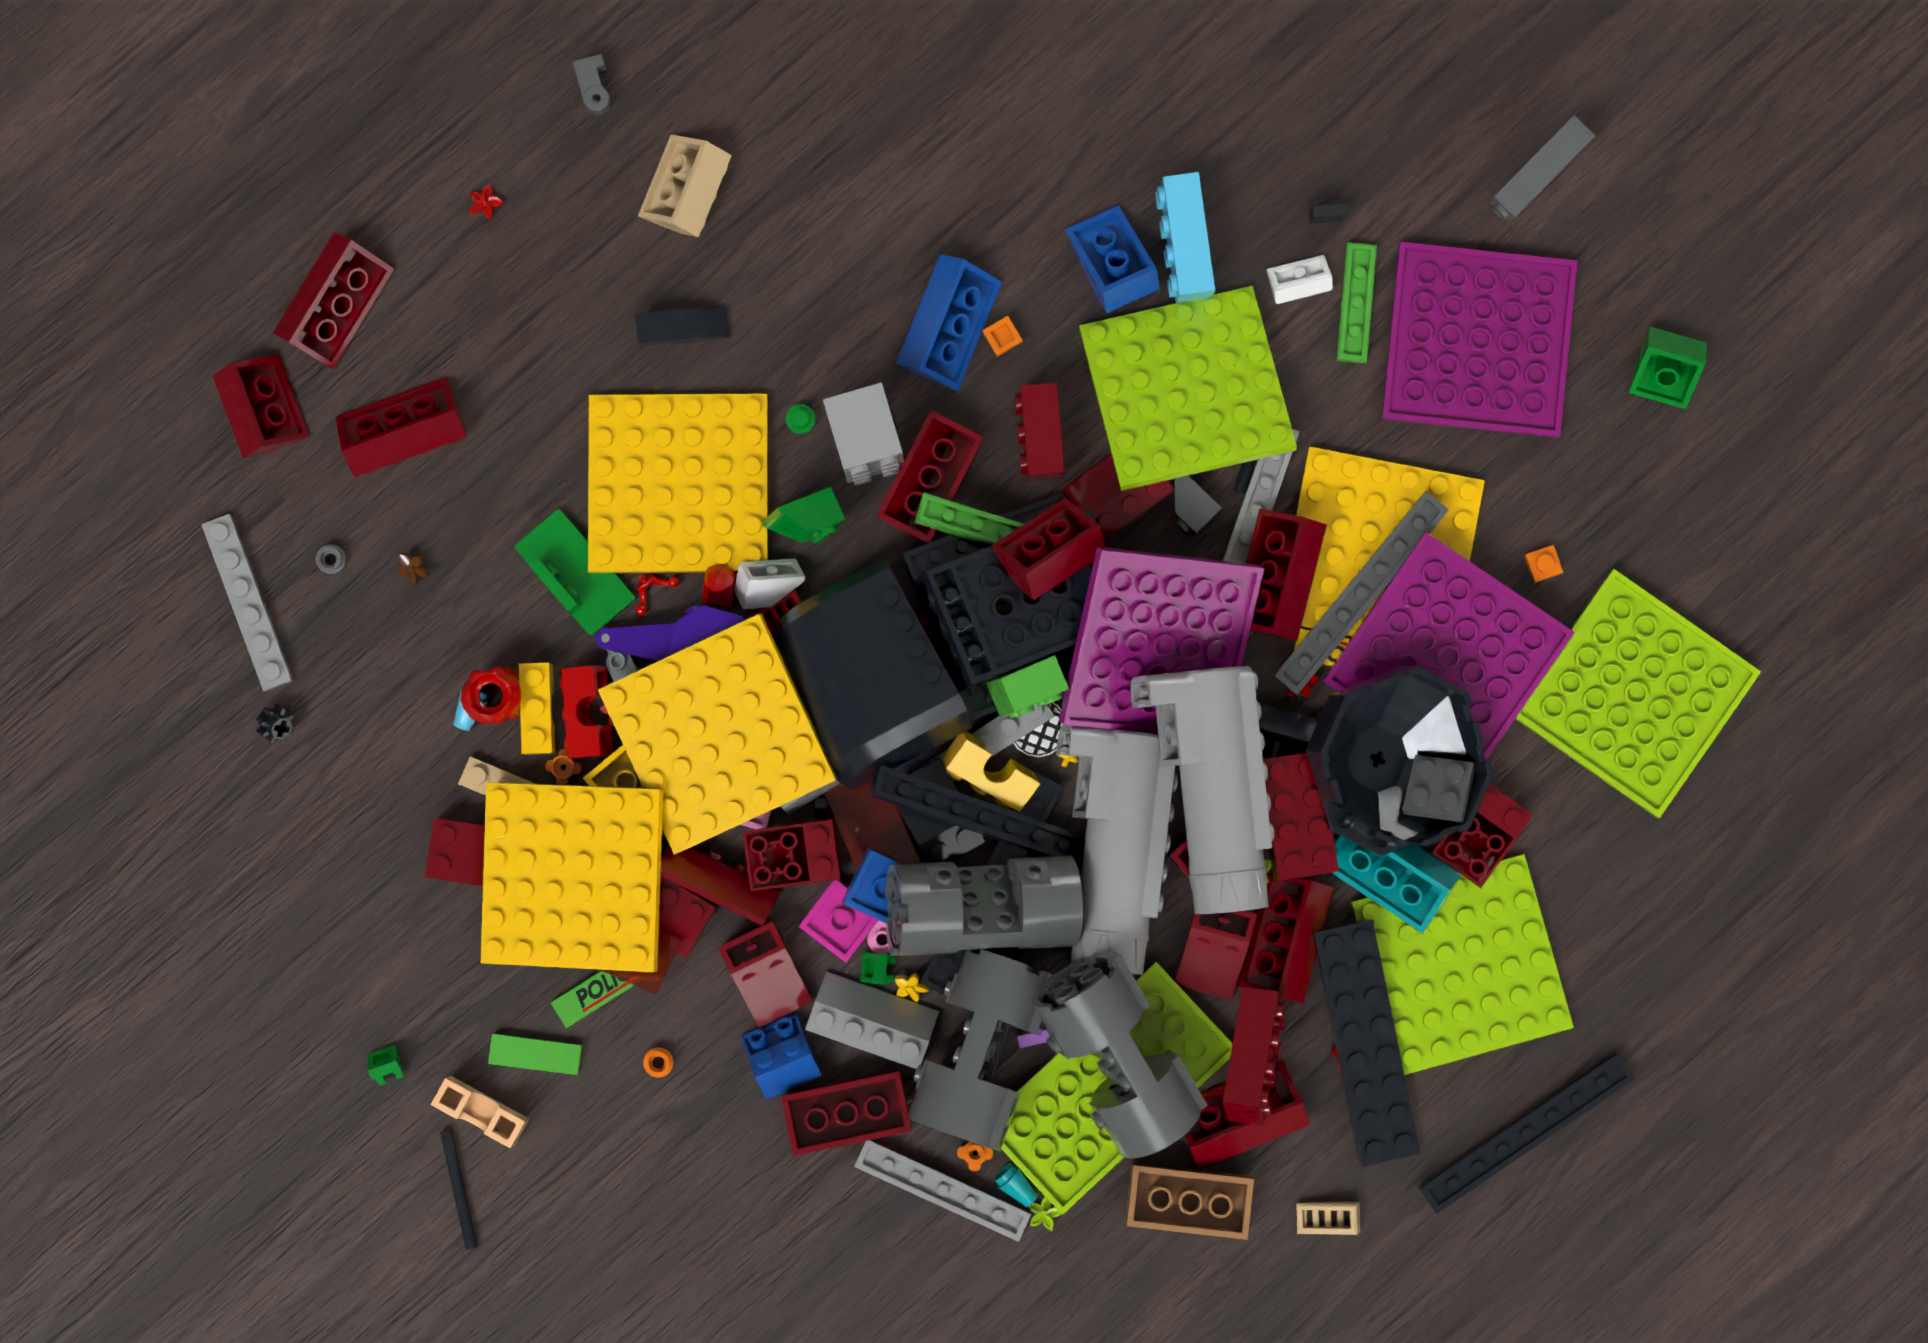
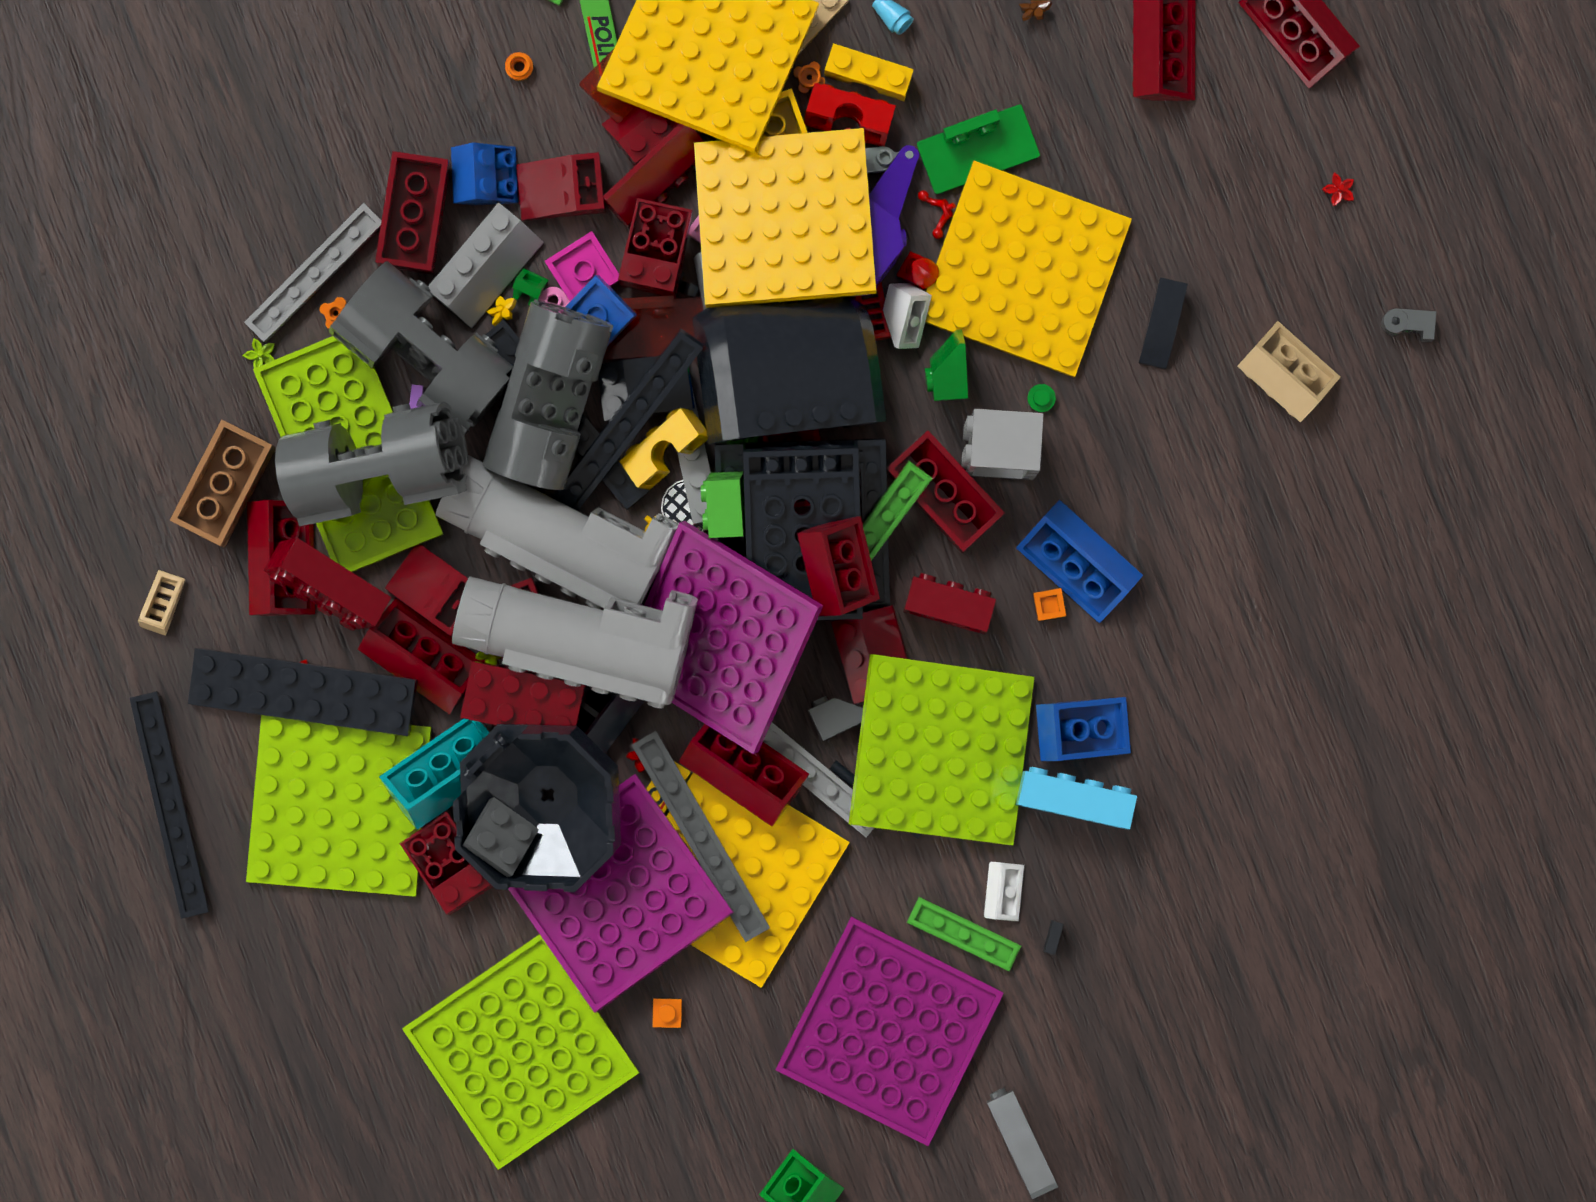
camera: 110 degrees right, 0 degrees up
(509, 706) = (903, 51): red piece -> none
(1014, 1183) = (294, 338): teal cone -> none

